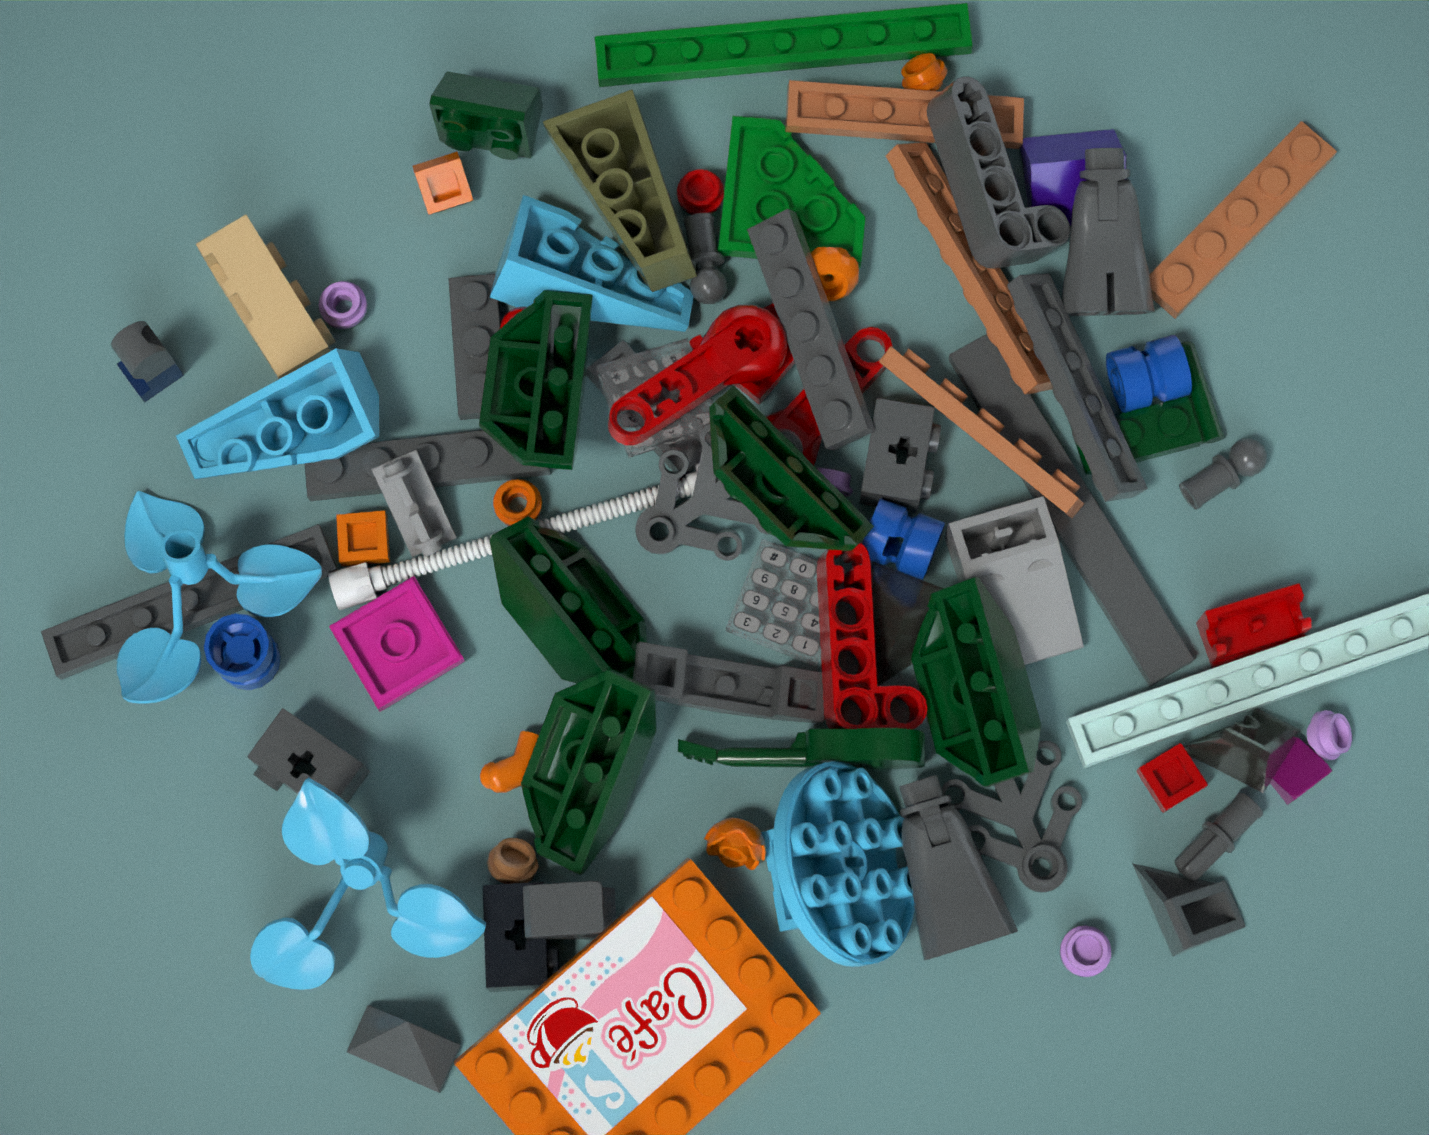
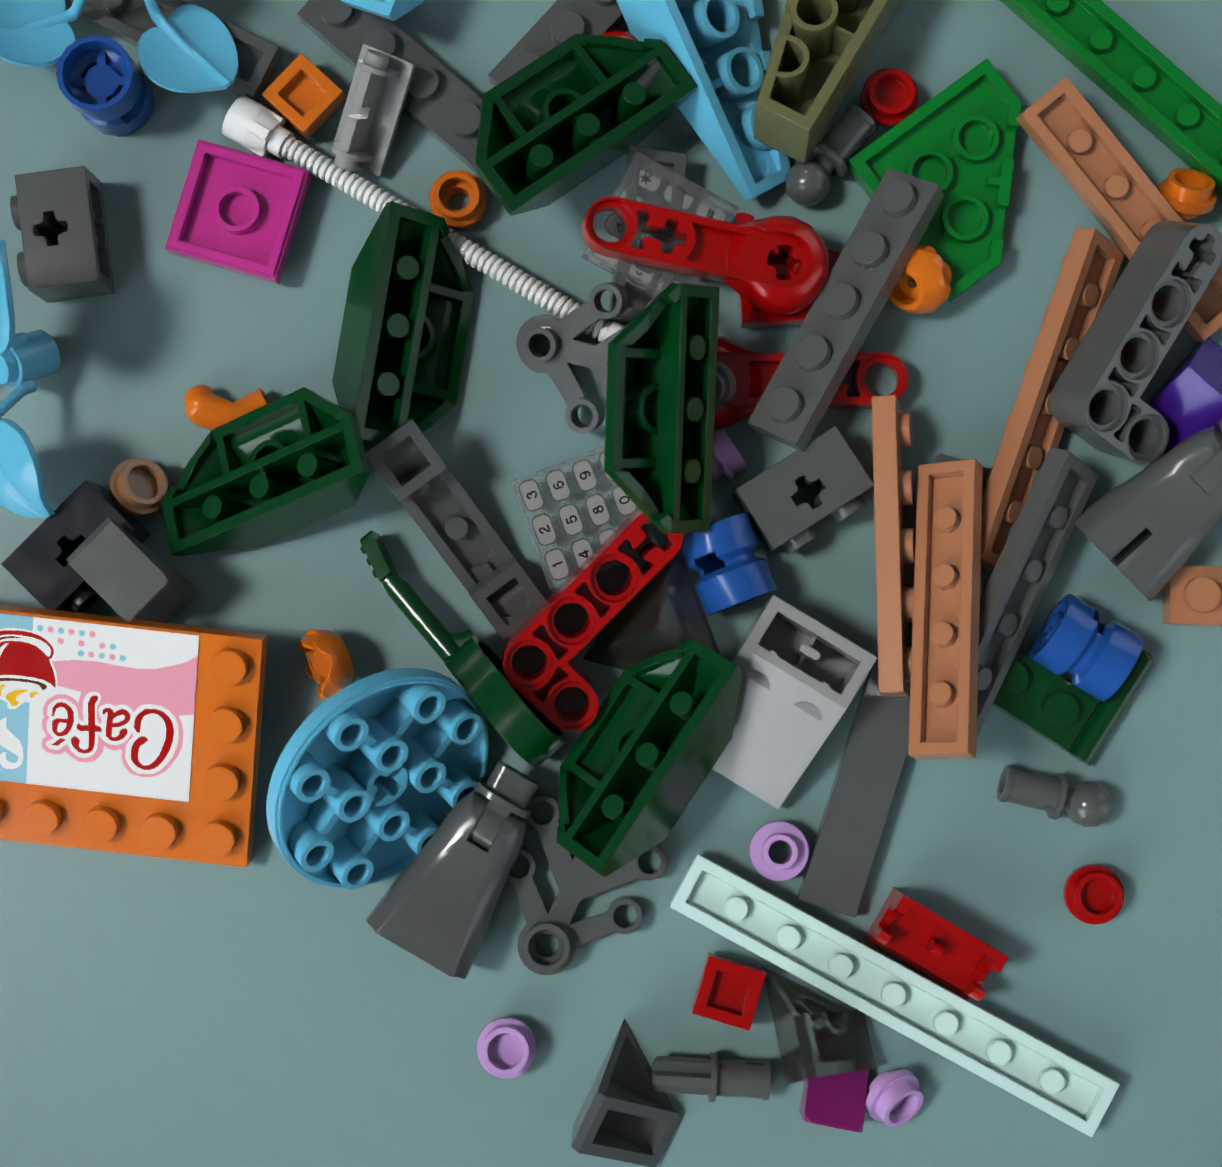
camera: 50 degrees right, 10 degrees up
(1051, 430) = (946, 611): none -> nougat plate
(1102, 682) = (762, 841): none -> lavender plate
(1306, 504) = (1093, 894): none -> red plate

